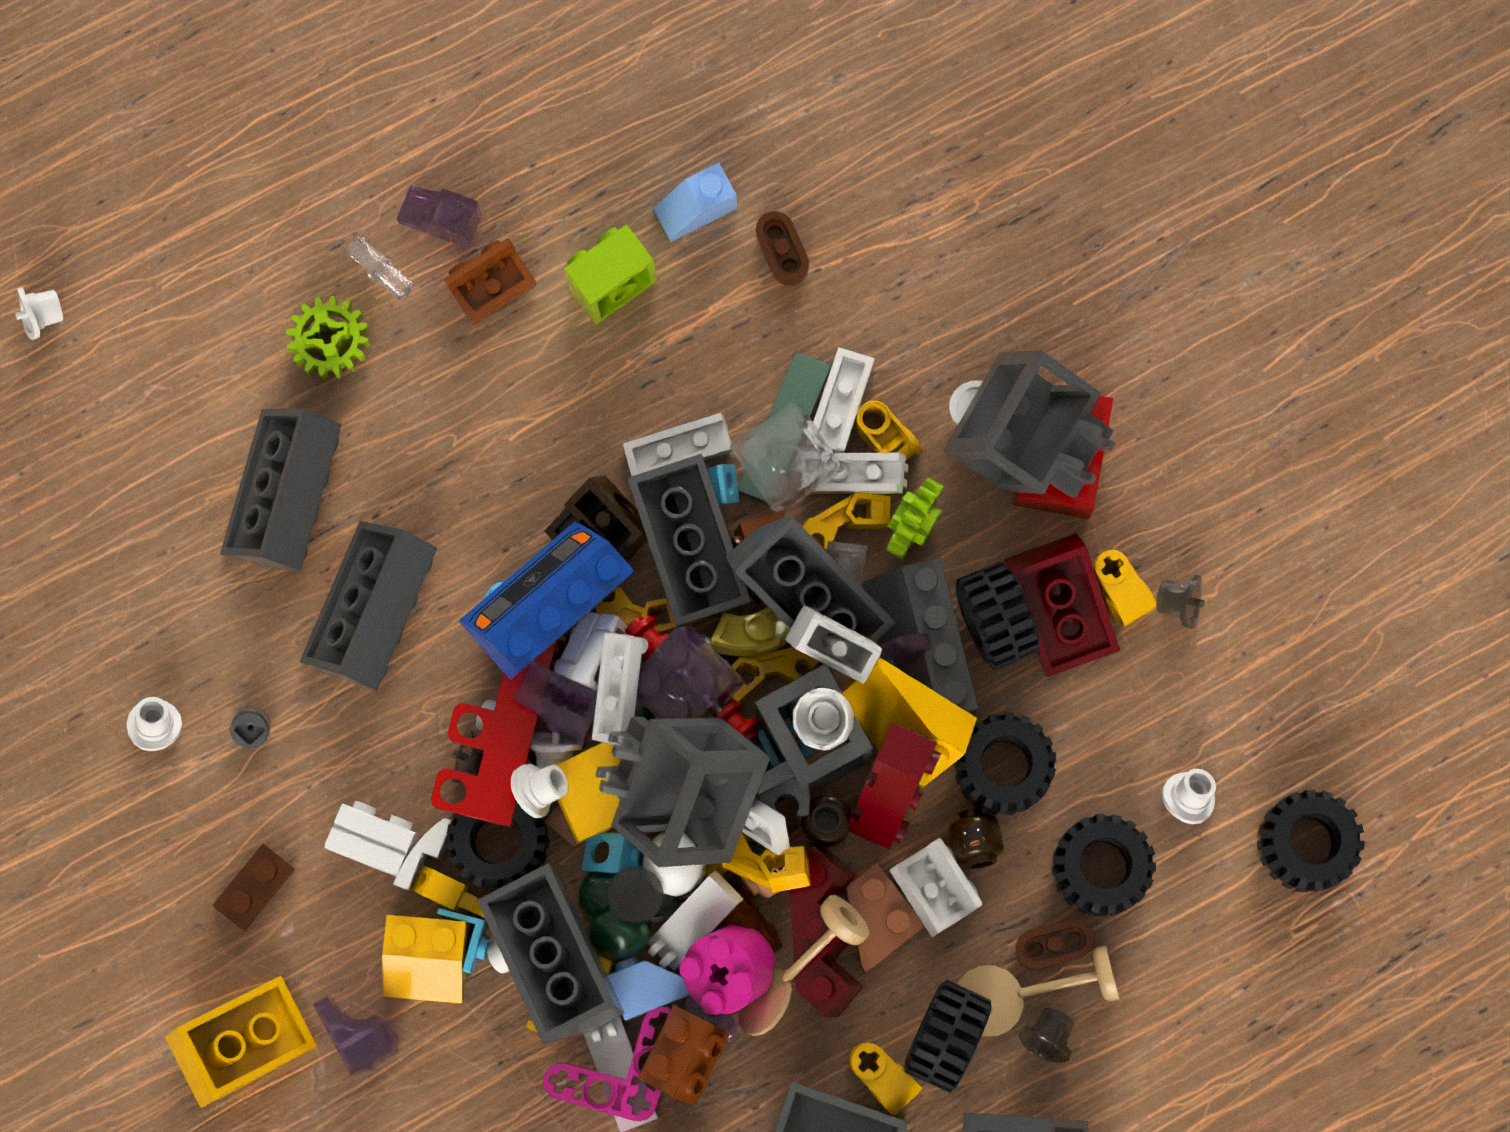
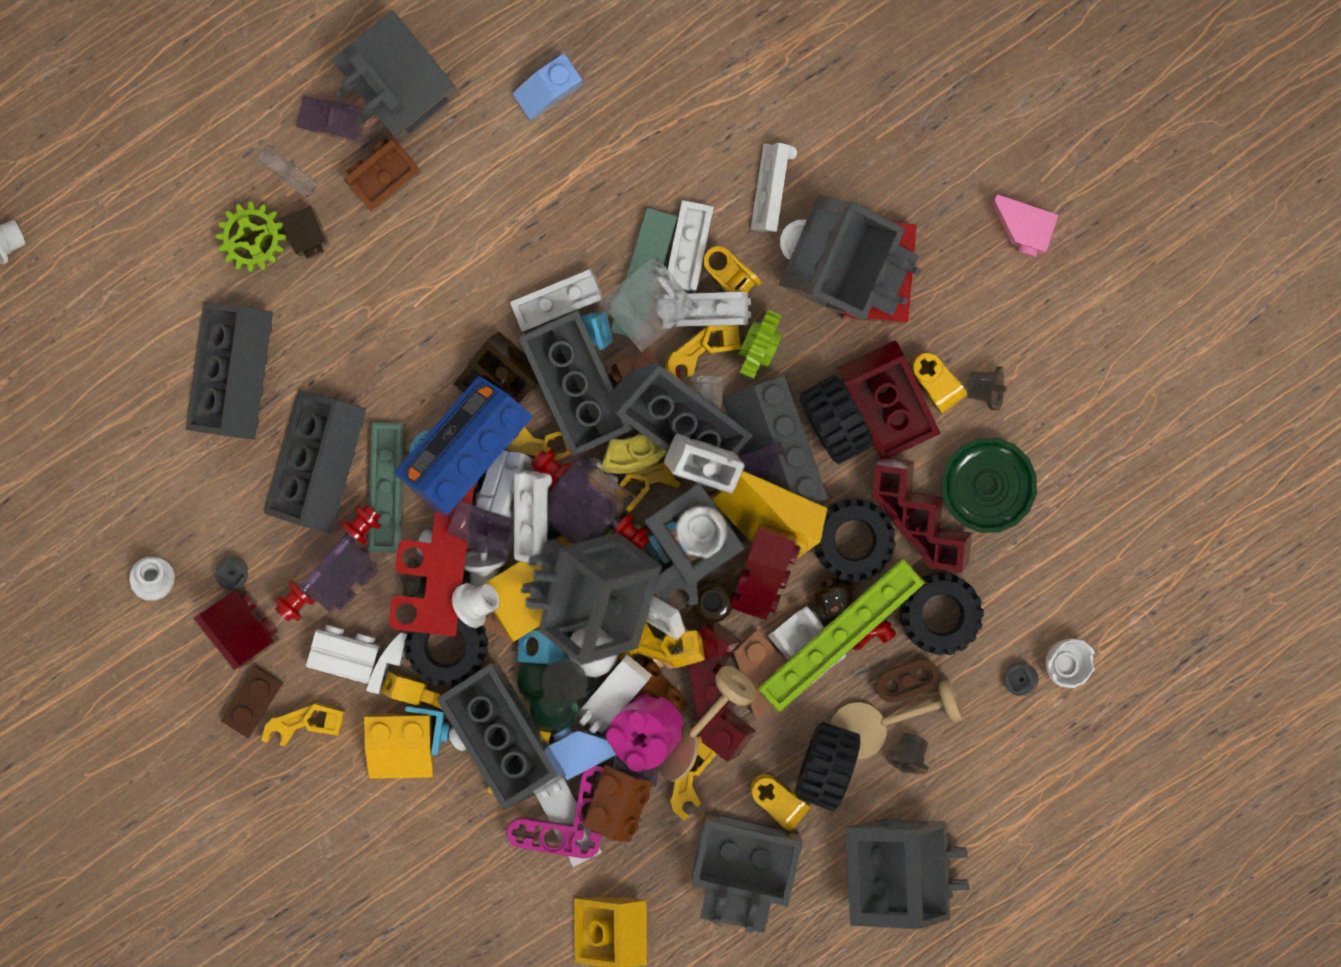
camera: 10 degrees left, 10 degrees up
(240, 1041) = (259, 827): yellow slope -> none
(247, 791) = (237, 628): none -> dark red slope
(298, 915) = (290, 722): none -> yellow piece
(357, 1040) = (353, 816): clear purple arch -> none
(376, 737) = (339, 572): none -> clear purple brick
(392, 338) = (305, 232): none -> dark brown brick
(448, 646) = (385, 487): none -> sand green tile
(519, 170) = (394, 77): none -> dark grey piece
(610, 273) = (482, 158): lime brick -> none
(766, 1047) = (683, 789): none -> yellow piece
(782, 250) = (625, 119): reddish brown plate -> none
(944, 341) = (770, 186): none -> white hinge
(978, 875) = (841, 635): none -> lime tile
(1013, 879) = (883, 631): none -> red arm
(1086, 744) = (919, 516): none -> dark red brick
(1174, 715) = (989, 485): none -> dark green hat
(1190, 796) = (1007, 549): white piece -> none
(1194, 958) = (1021, 679): none -> dark grey tile
(1241, 415) = (1025, 225): none -> bright pink slope
(1256, 942) = (1070, 662): none -> white hair
(1341, 829) = (1136, 576): black tyre -> none

